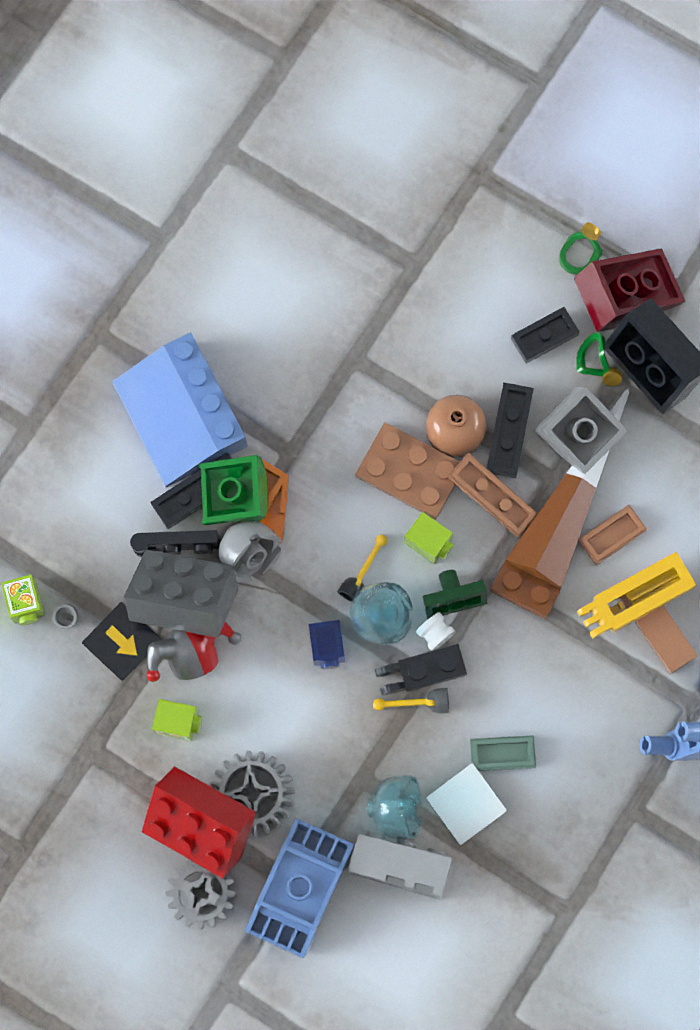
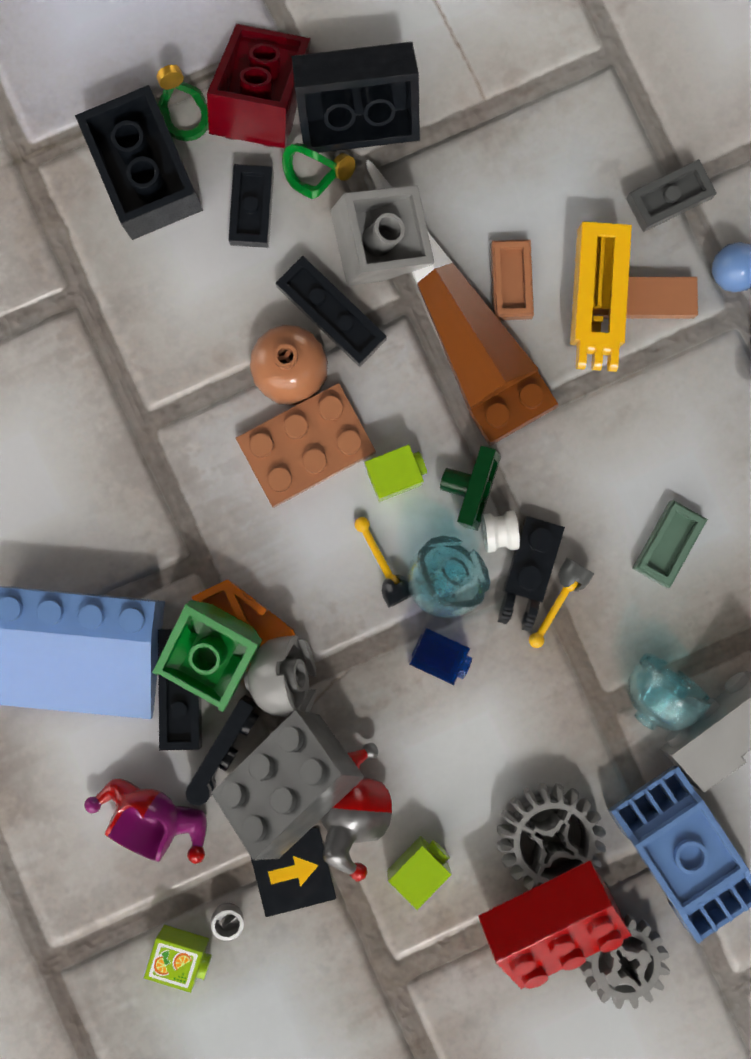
camera: 65 degrees left, 10 degrees up
(99, 524) = (149, 820): none -> magenta piece
(466, 804) = (699, 616): white sticker -> none
(492, 495) = (390, 375): nougat tile -> none
(522, 248) = (138, 162): none -> black brick

